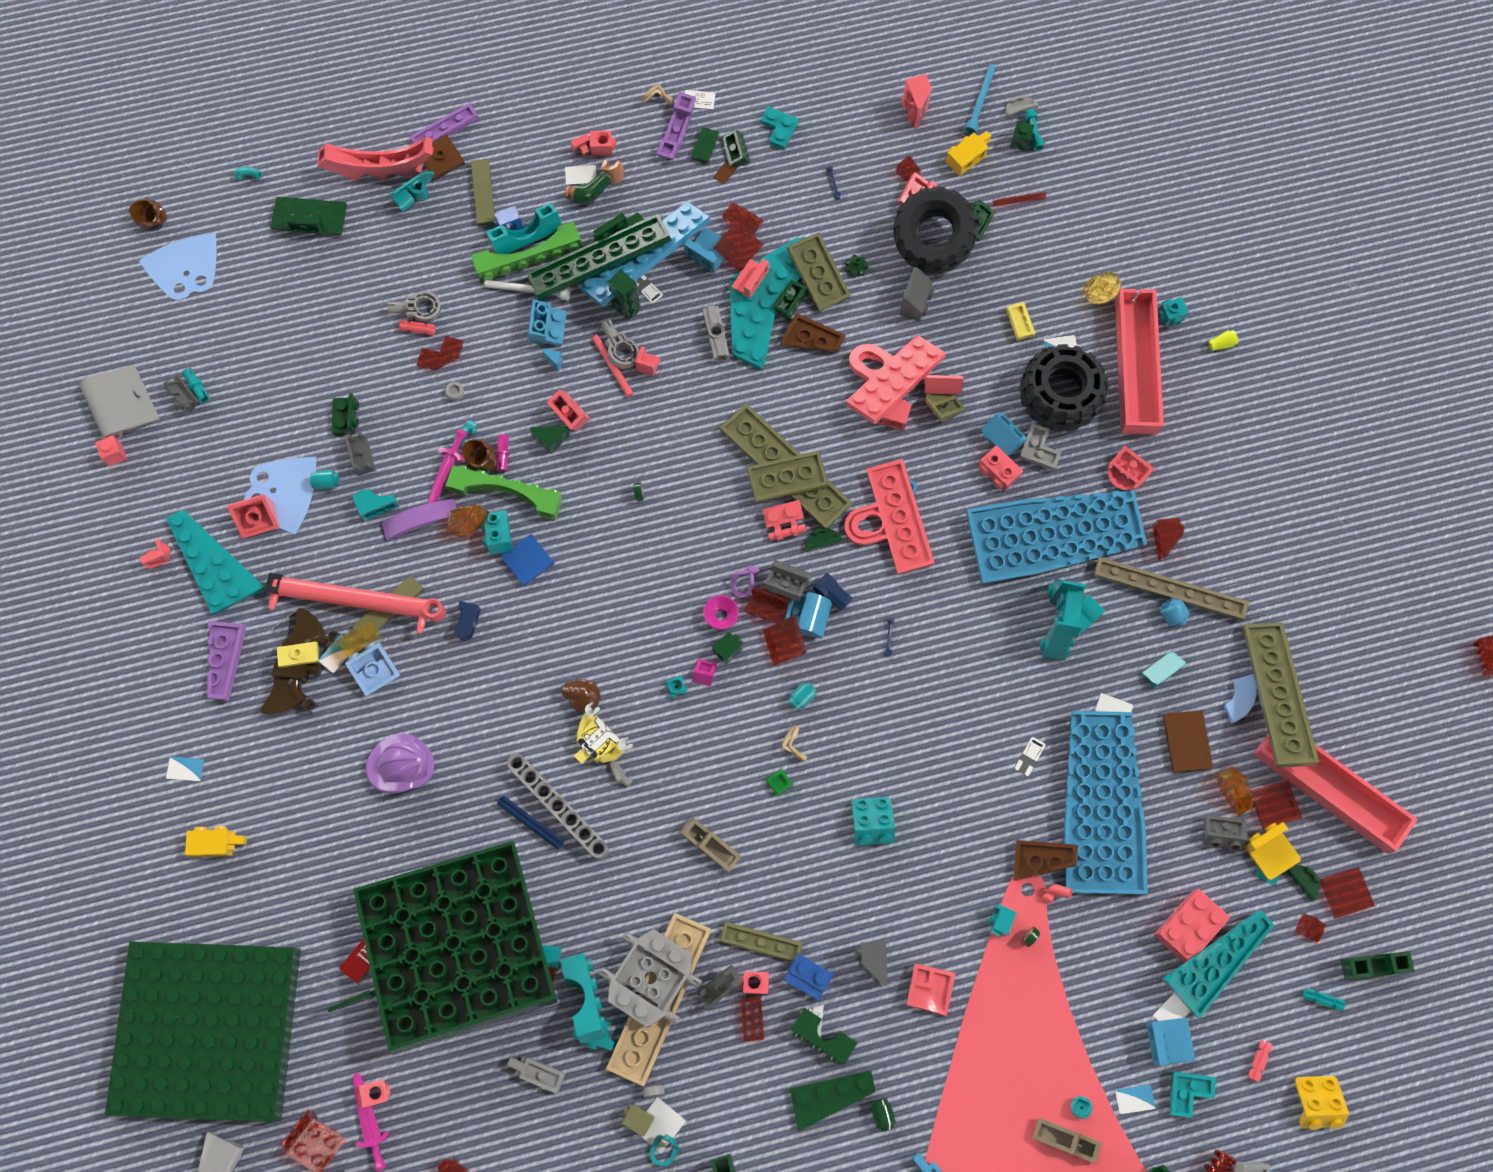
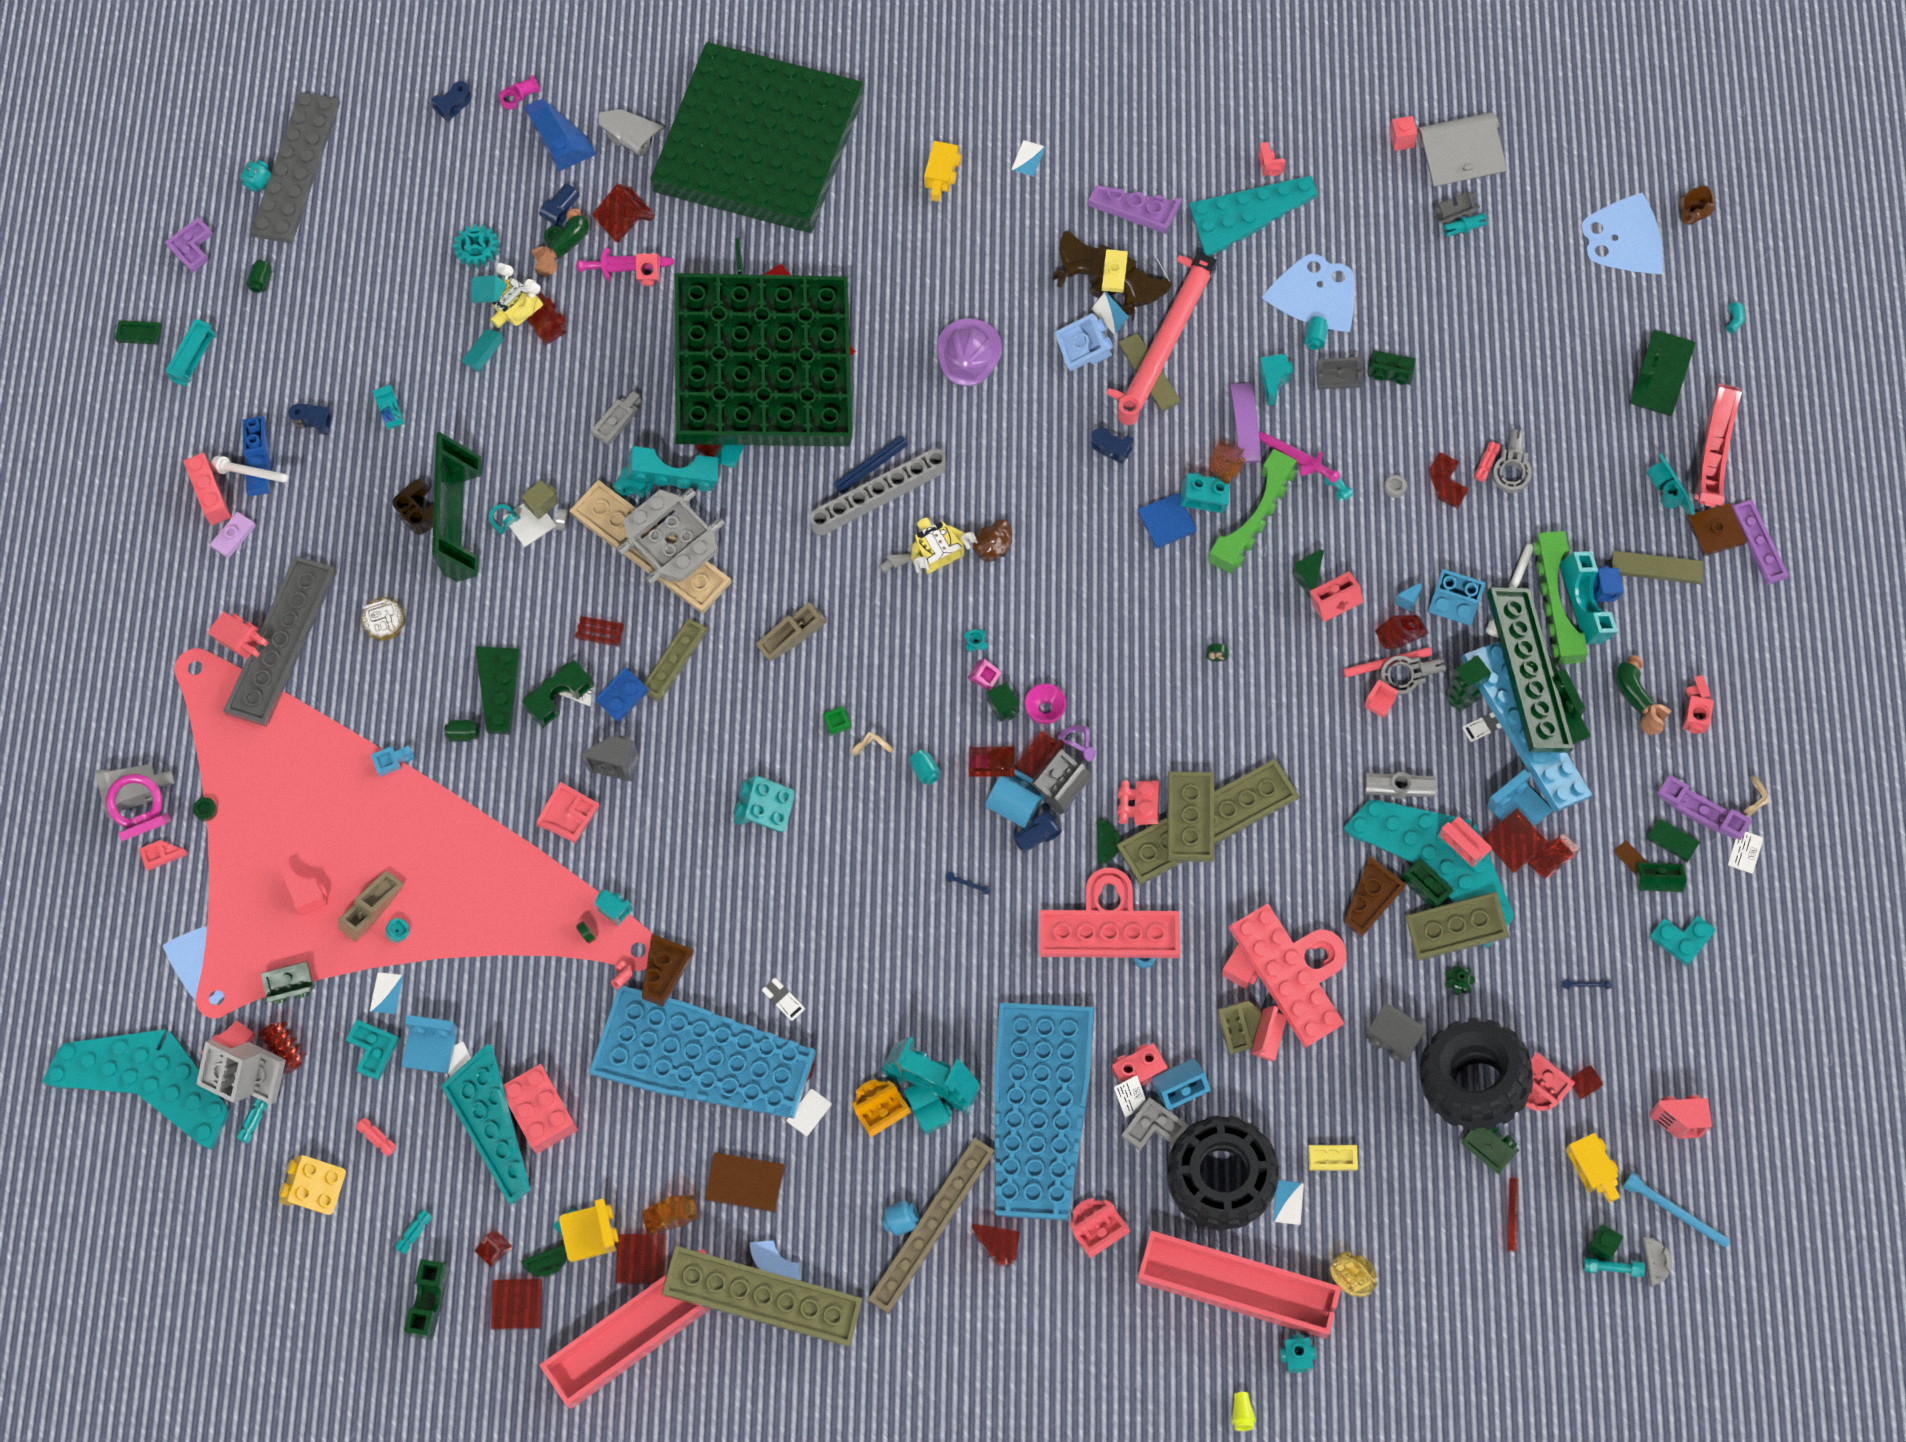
camera: 110 degrees right, 5 degrees down
(254, 515) = (1289, 258): coral slope -> none
(358, 638) = (1117, 331): clear yellow brick -> none
(479, 454) = (1305, 492): reddish brown hair -> none
(502, 453) = (1303, 519): dark pink axle -> none
(580, 174) = (1661, 684): white sticker -> none
(585, 359) = (1400, 631): none -> clear red slope
(720, 986) = (639, 603): dark grey hinge -> none
(763, 978) = (633, 649): coral brick -> none
(1024, 467) = (1130, 1096): none -> white sticker
(1094, 653) = (879, 1106): none -> light orange slope
(1163, 669) = (837, 1183): slope -> none
(1225, 833) = (627, 1185): dark grey bracket -> none

